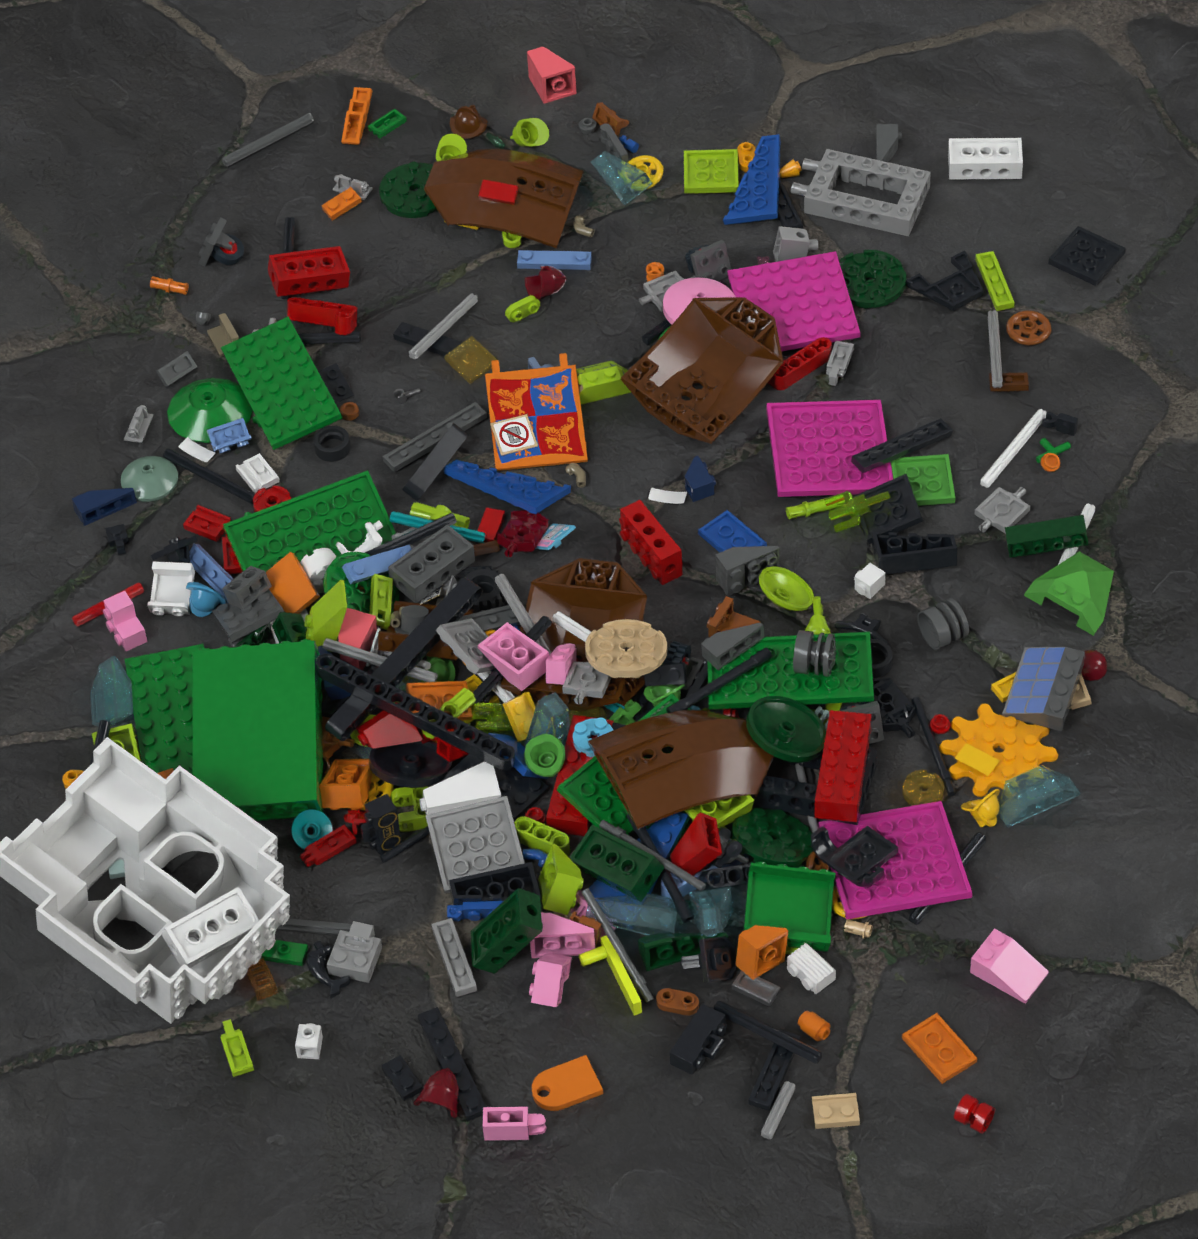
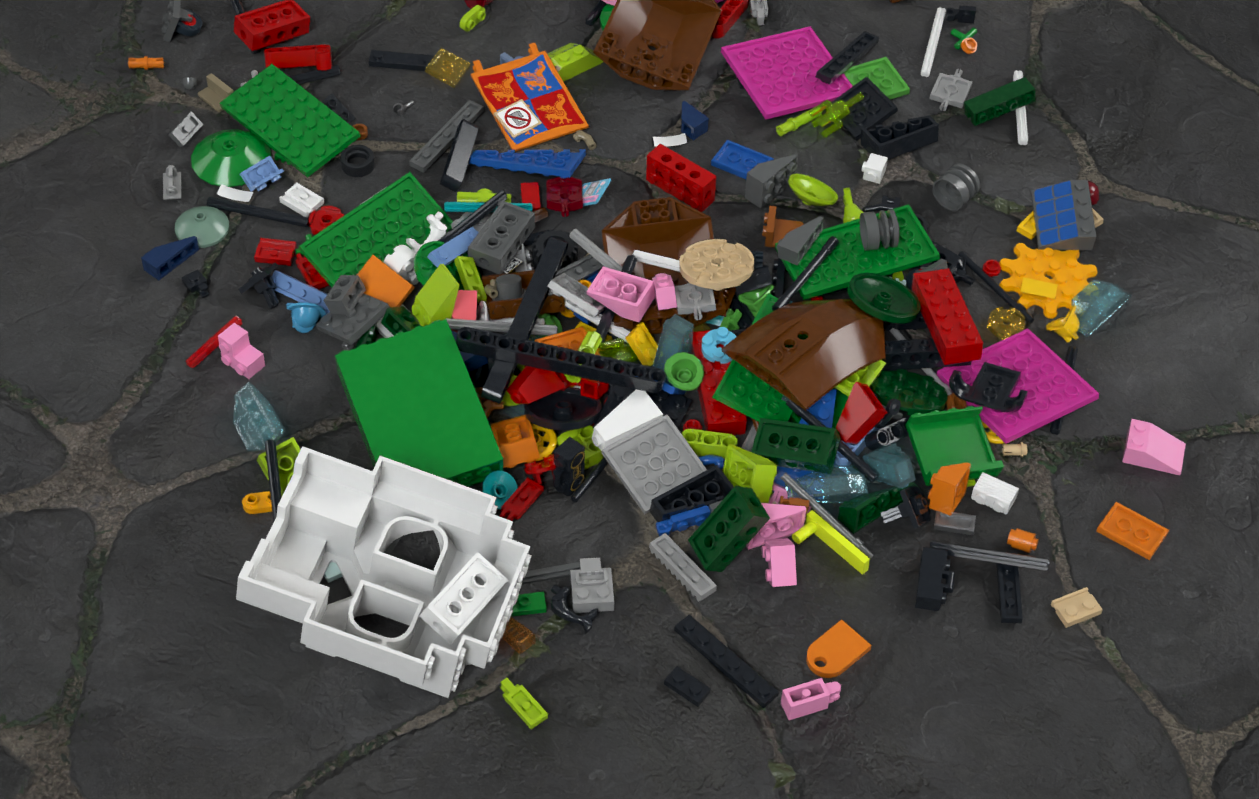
camera: 25 degrees left, 0 degrees up
(164, 707) = (316, 411): green plate -> none
(169, 588) = (270, 313): white panel -> none
(309, 1041) = (588, 677): white brick -> none
(441, 1090) = (733, 685): dark red helmet -> none
(443, 326) = (411, 45): light grey axle -> none
(621, 833) = (843, 435): dark grey bar -> none
(676, 1002) = (895, 552): dark orange plate -> none
(778, 1110) = (1029, 620): light grey axle -> none
(973, 1113) = (1187, 577): red wheel -> none
(1078, 586) = (1045, 133): bright green wedge -> none

